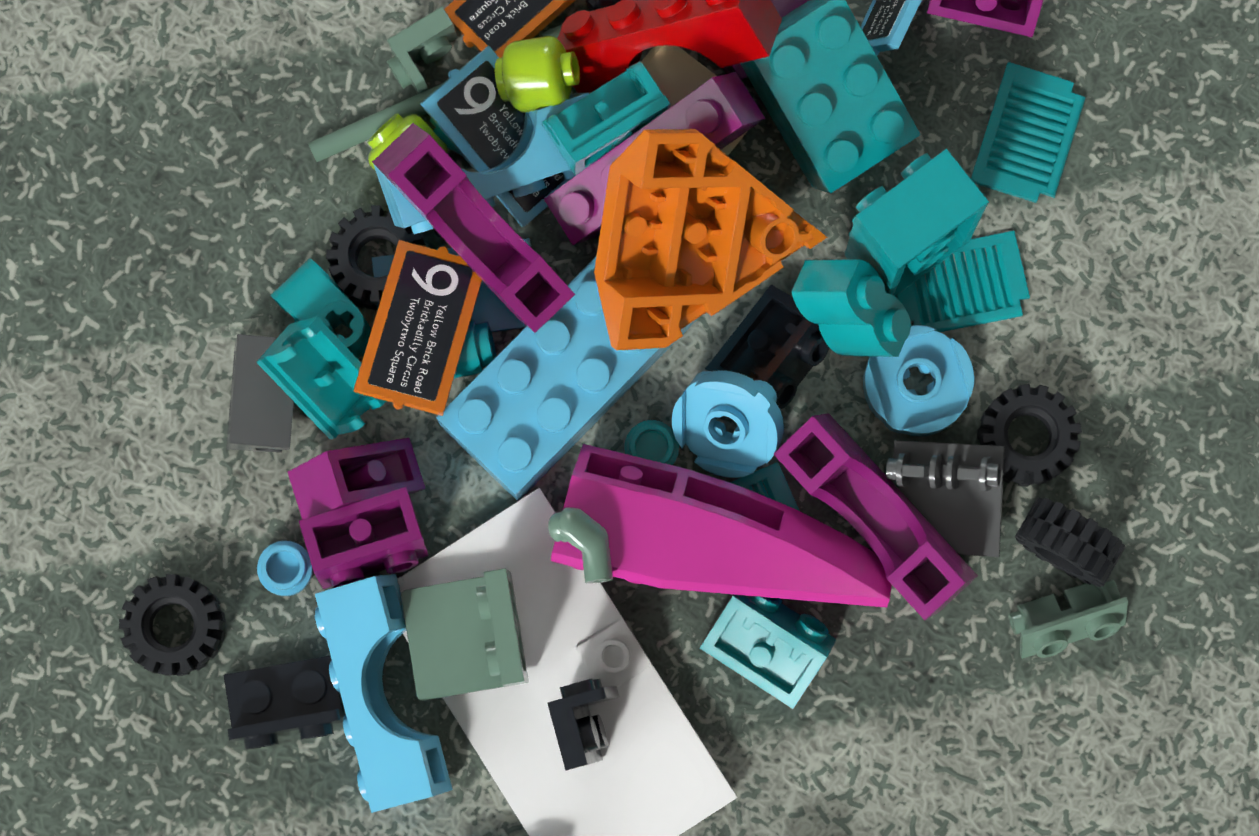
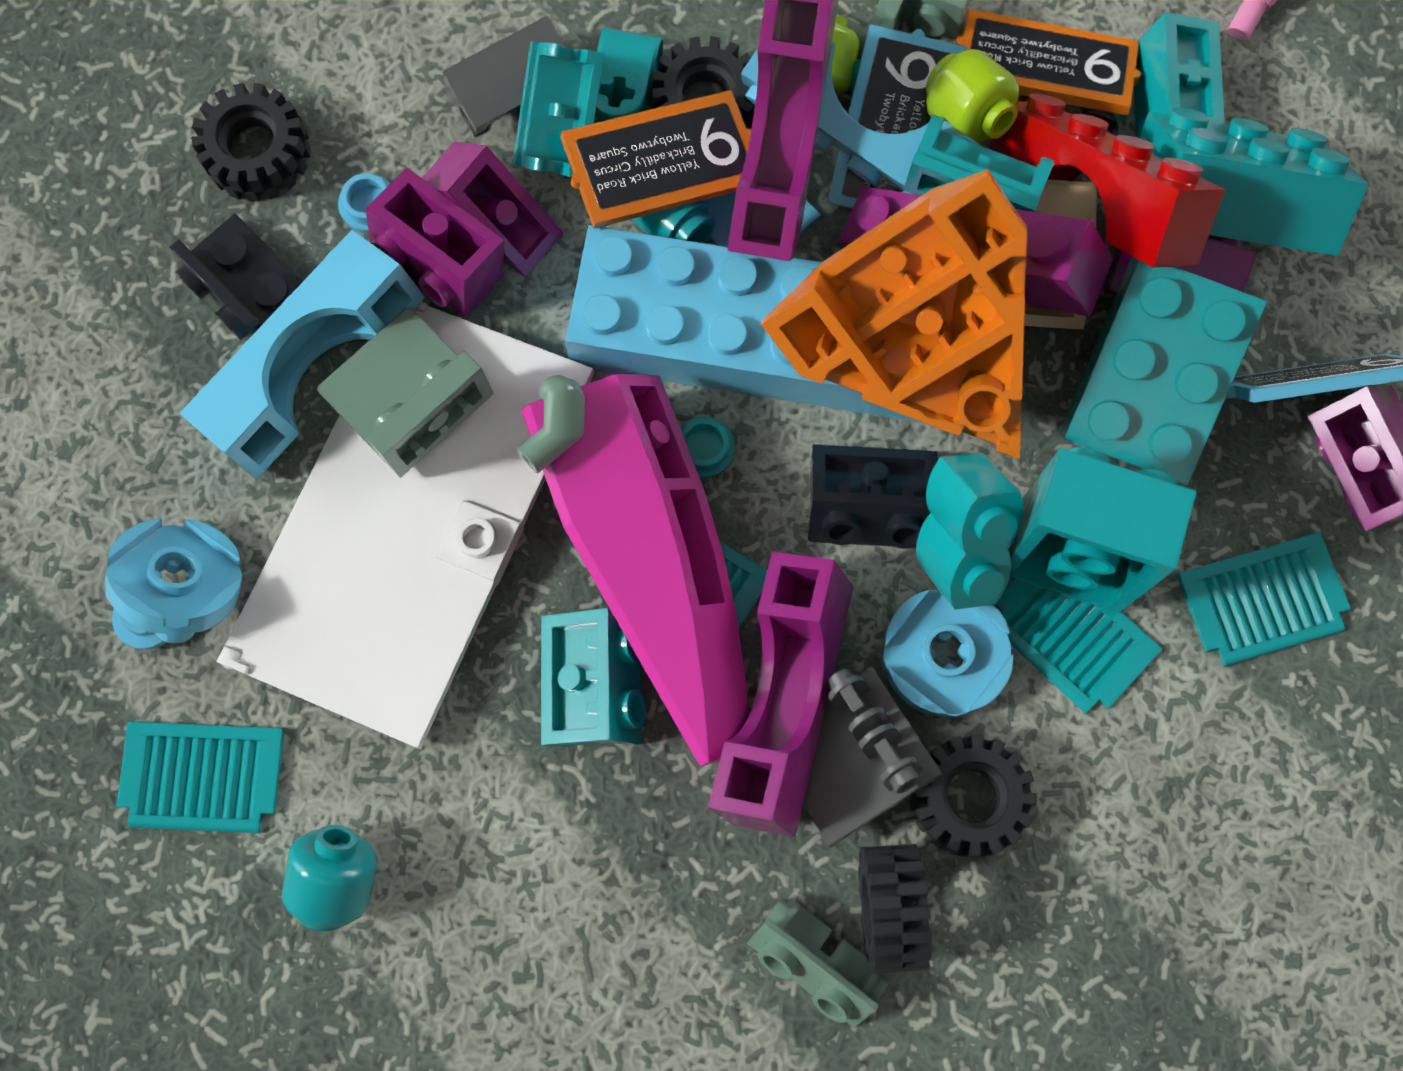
camera: 55 degrees right, 5 degrees down
(577, 731) = (377, 536): black bracket -> none
(747, 403) = (801, 500): medium azure plate -> none

